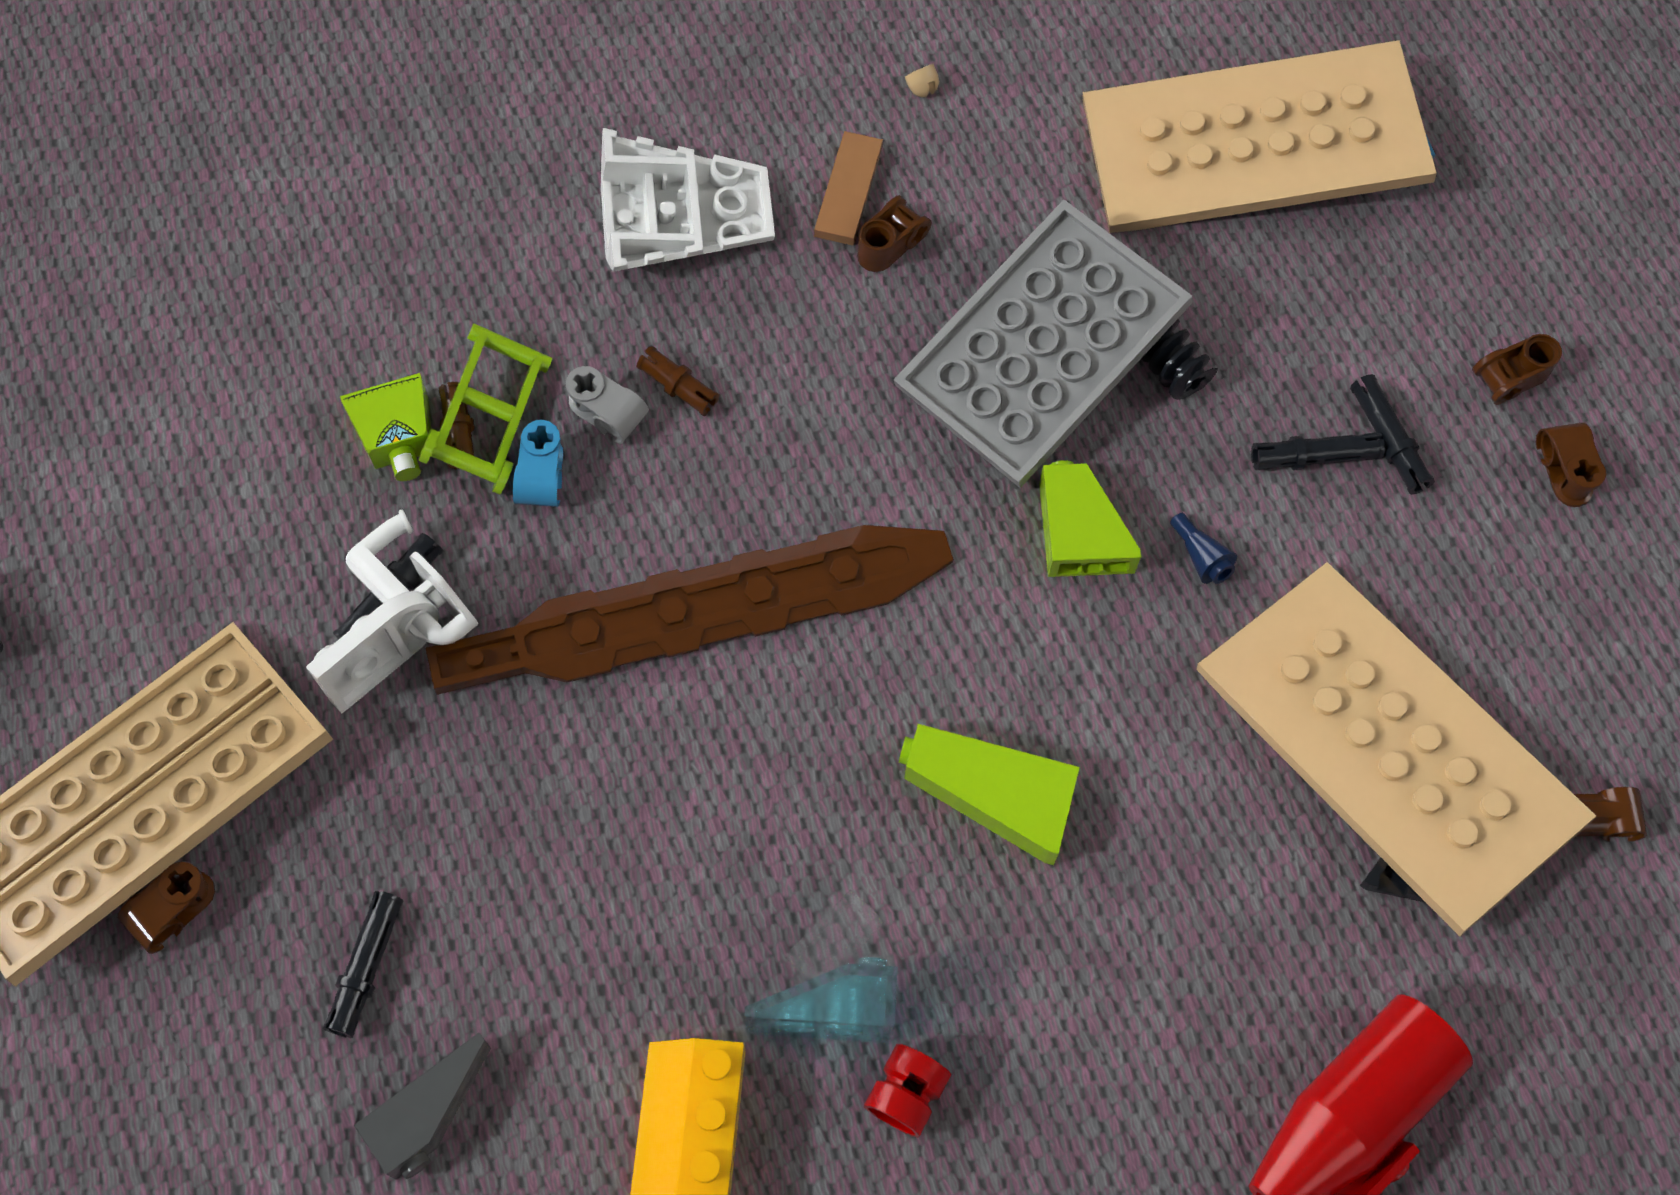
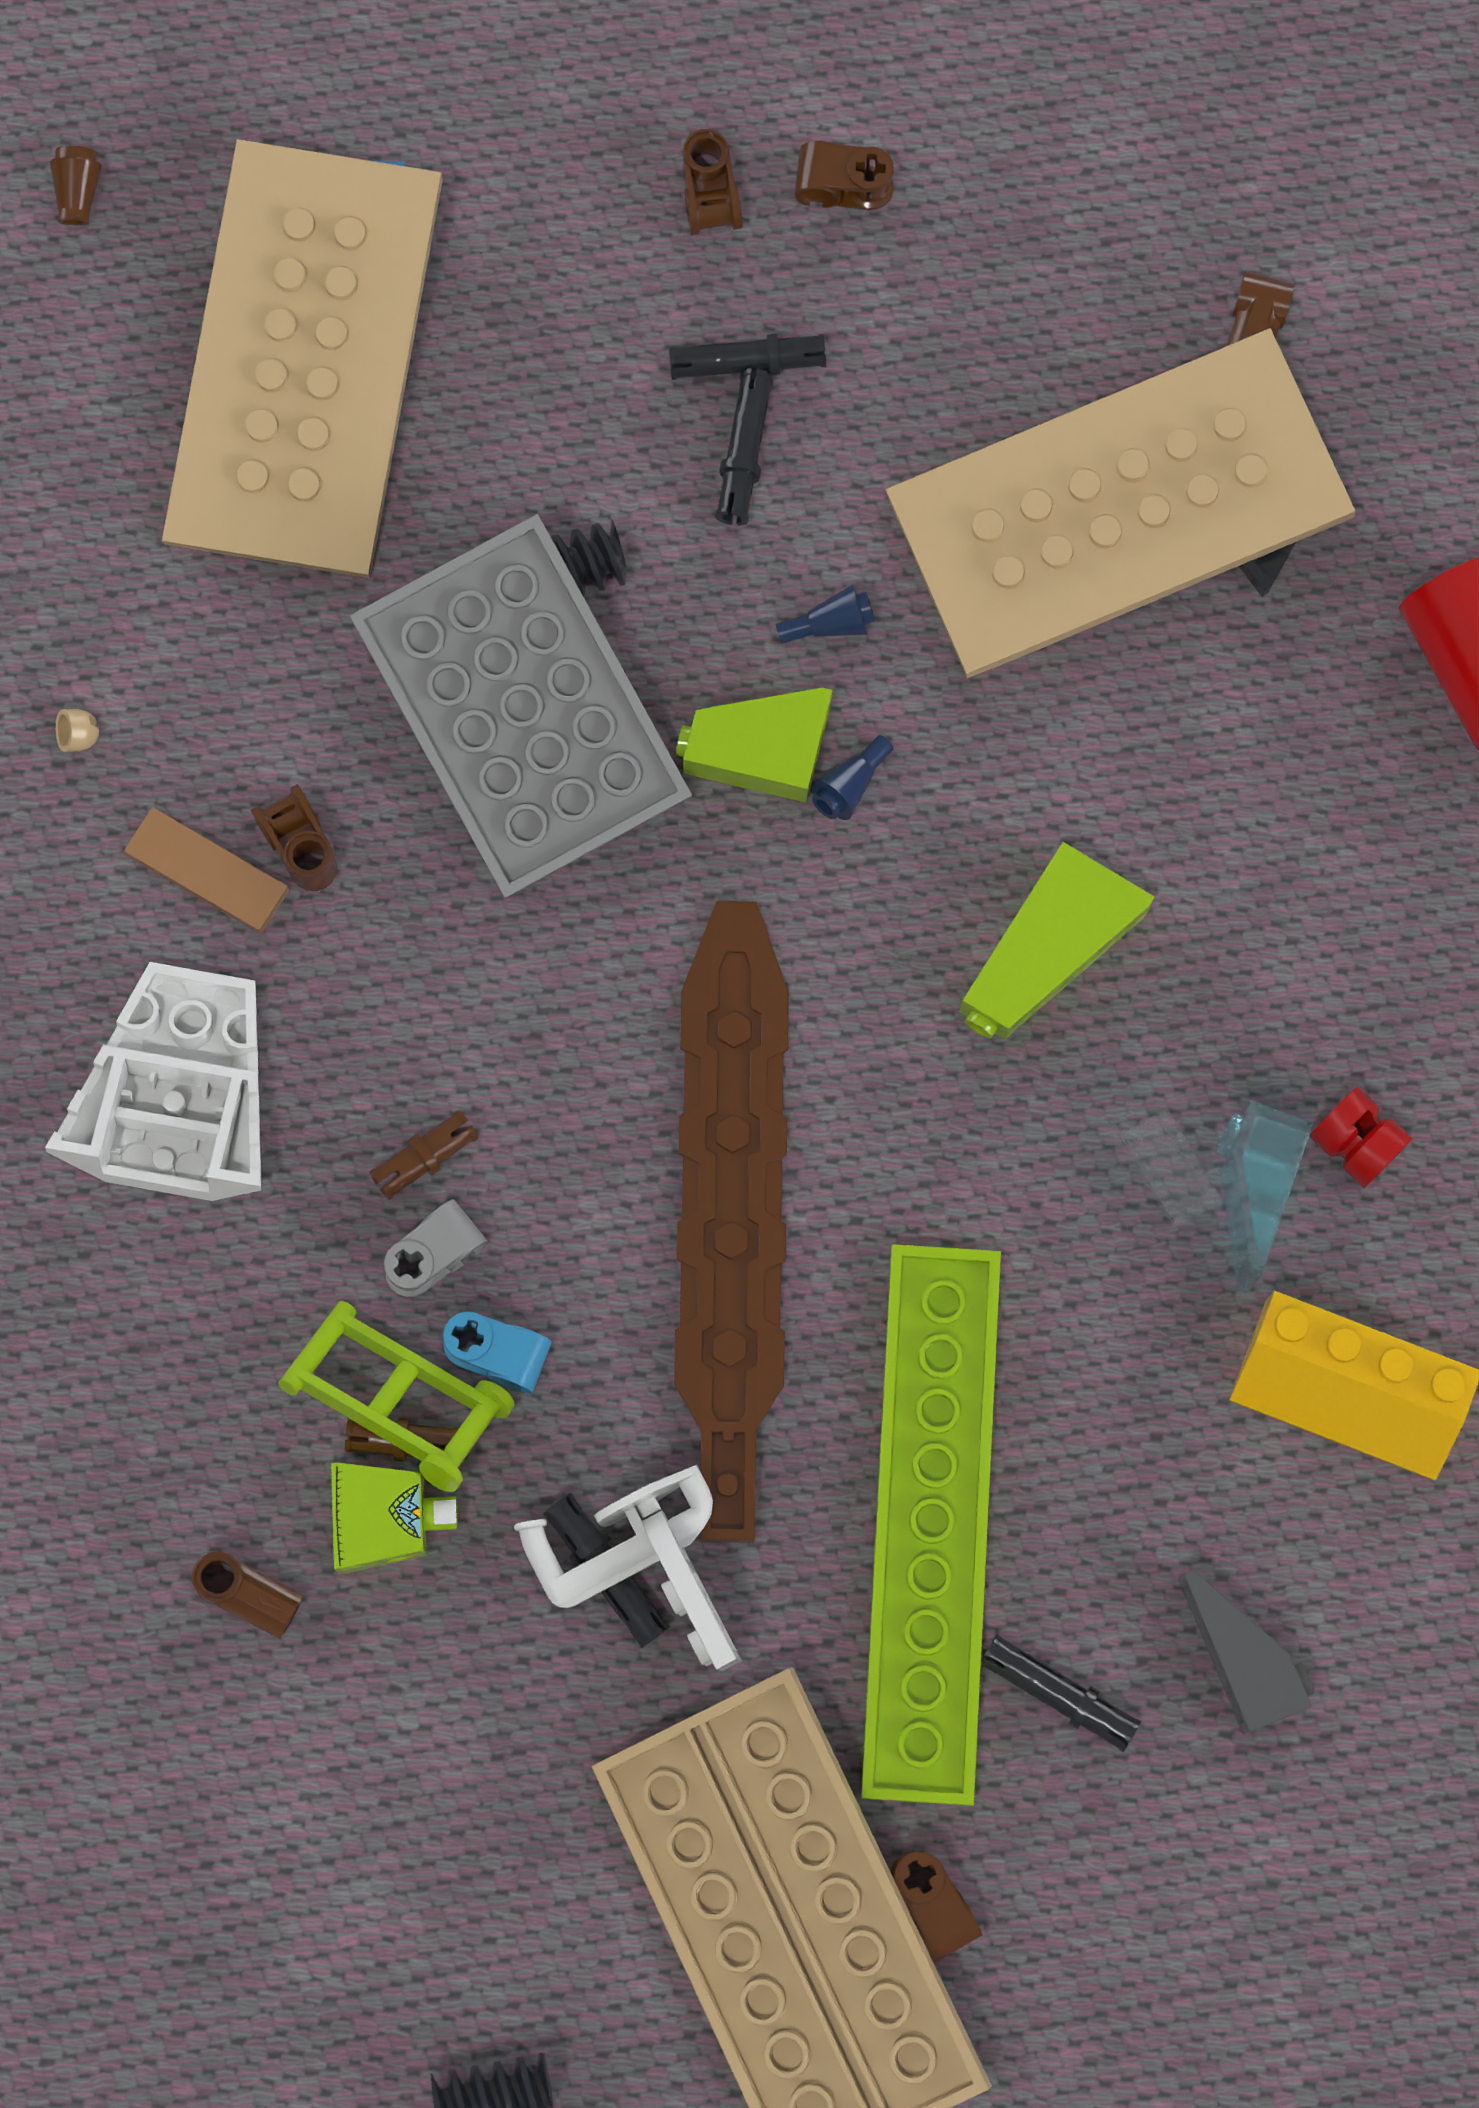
camera: 75 degrees left, 10 degrees up
(314, 353) = (251, 1596): none -> reddish brown piece
(479, 824) = (931, 1526): none -> lime plate
(1069, 596) = (841, 788): none -> dark blue cone

